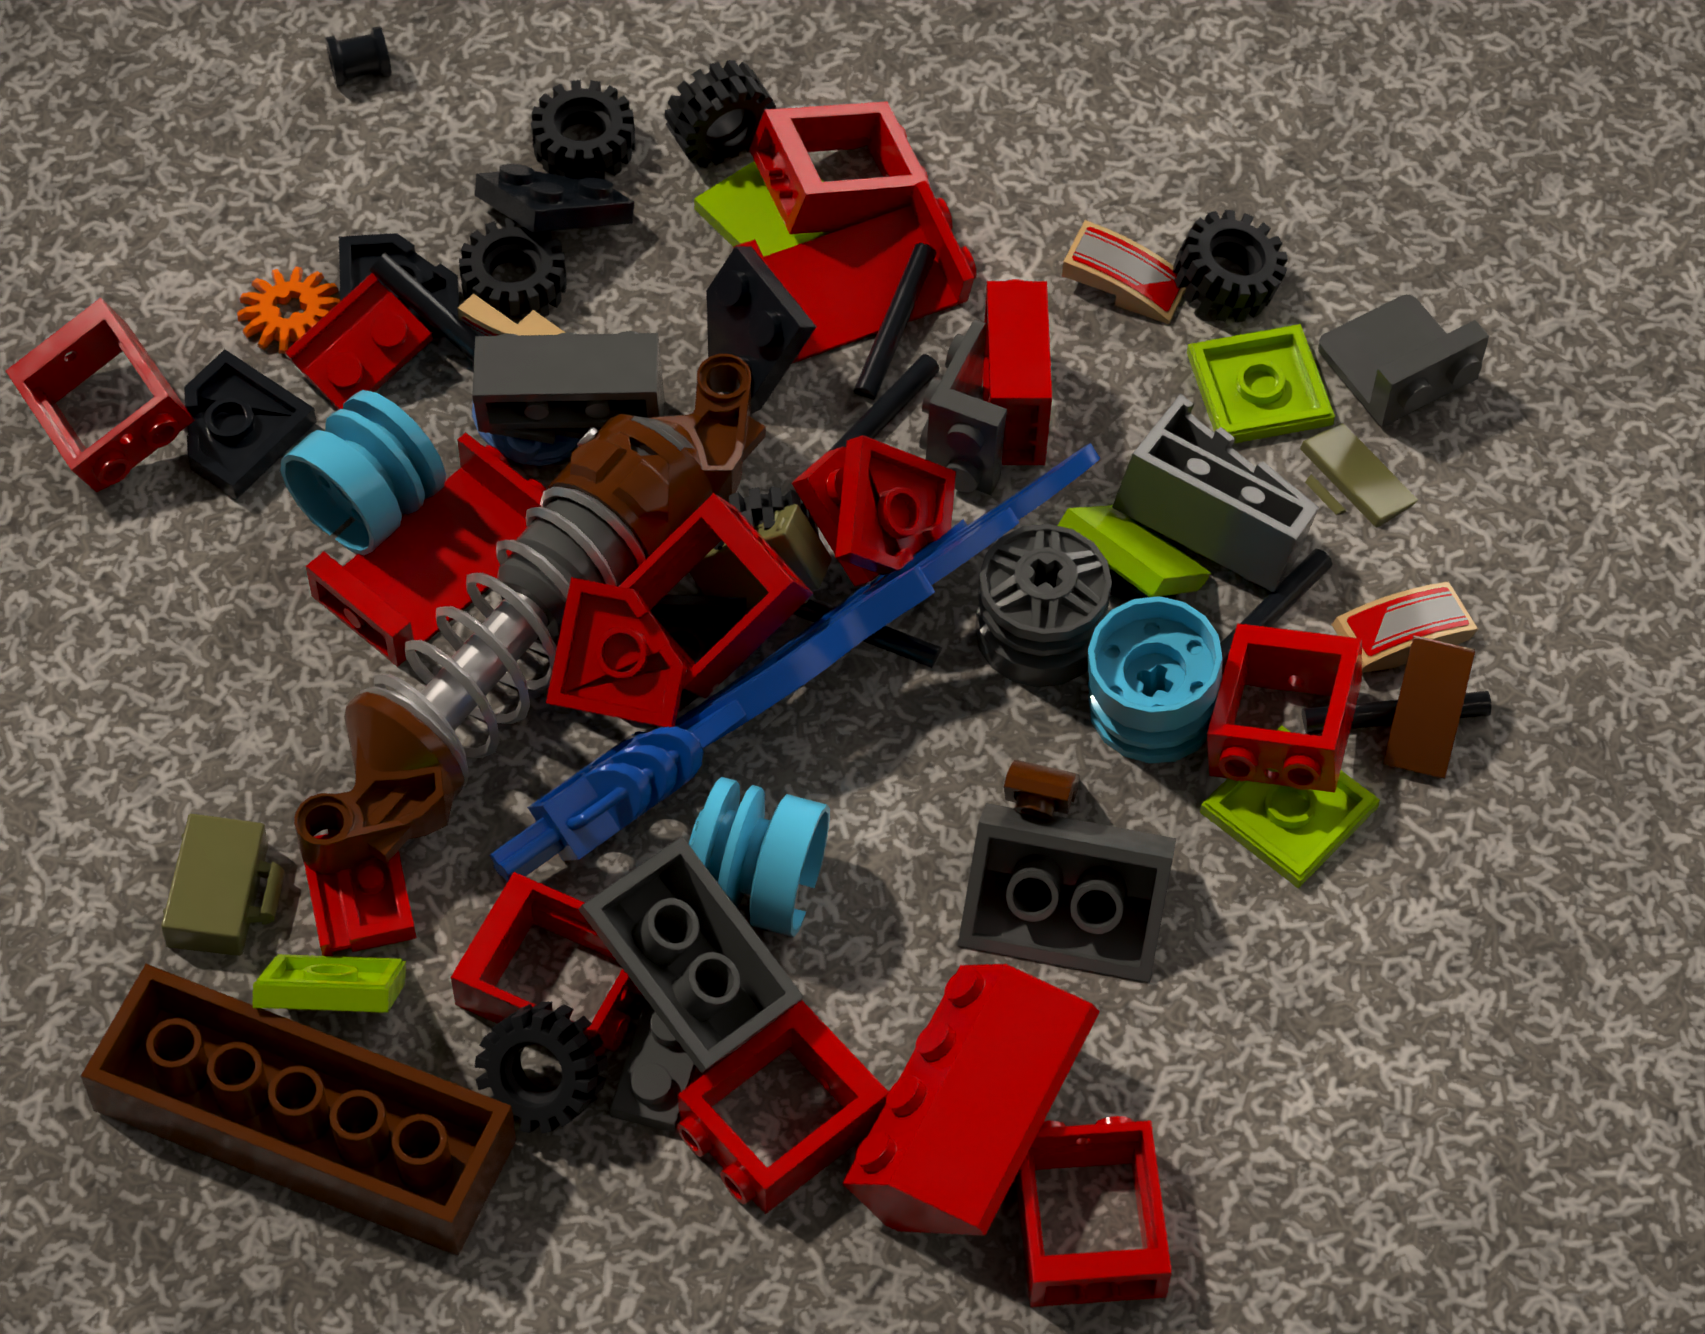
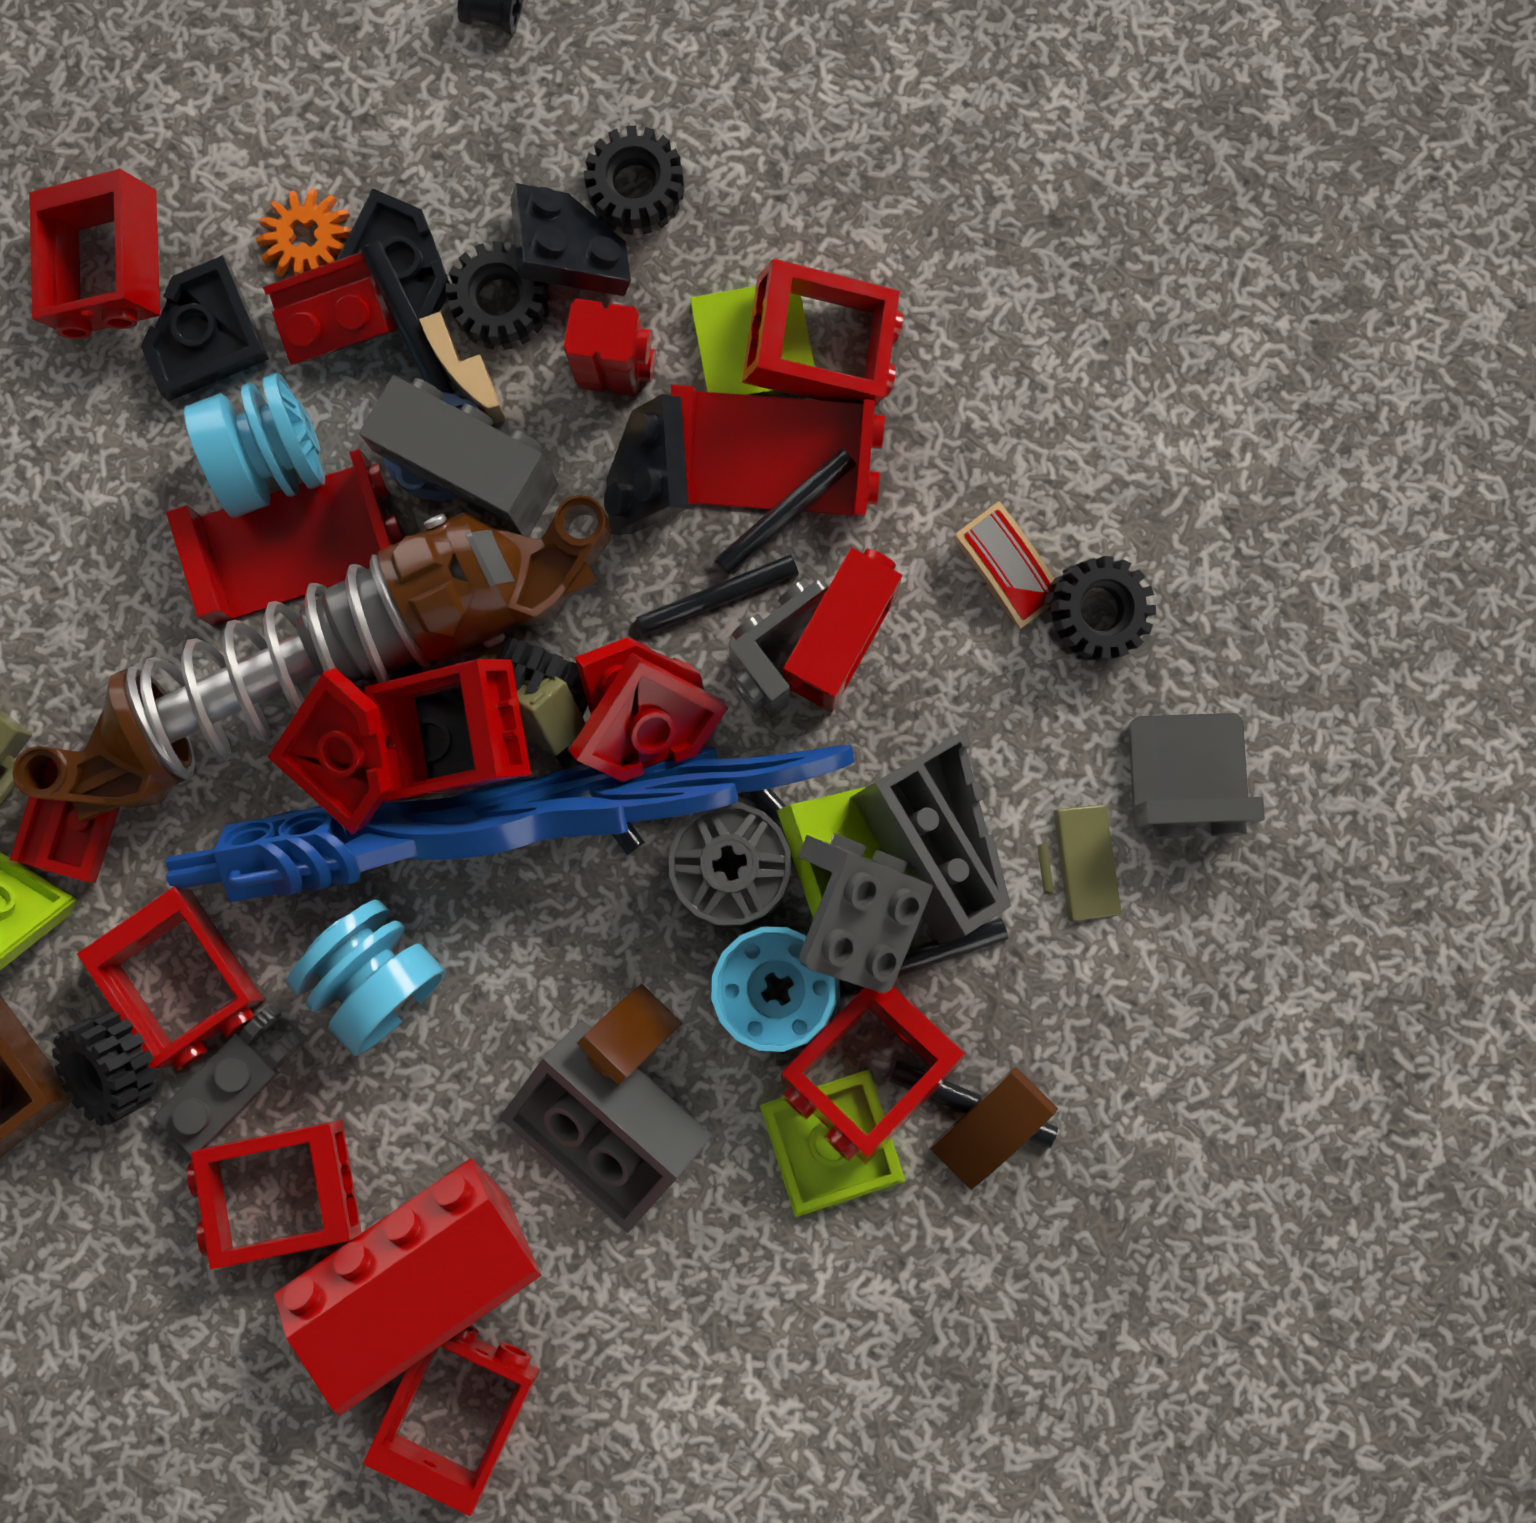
camera: 35 degrees right, 25 degrees up
(653, 252) = (608, 347): none -> red brick
(691, 954) = (236, 1060): dark grey slope -> none
(717, 112) = (750, 227): black tyre -> none
(1197, 552) = (863, 915): none -> dark grey bracket
(1261, 383) = (1057, 733): lime tile -> none
(1392, 621) = (1027, 1034): slope -> none

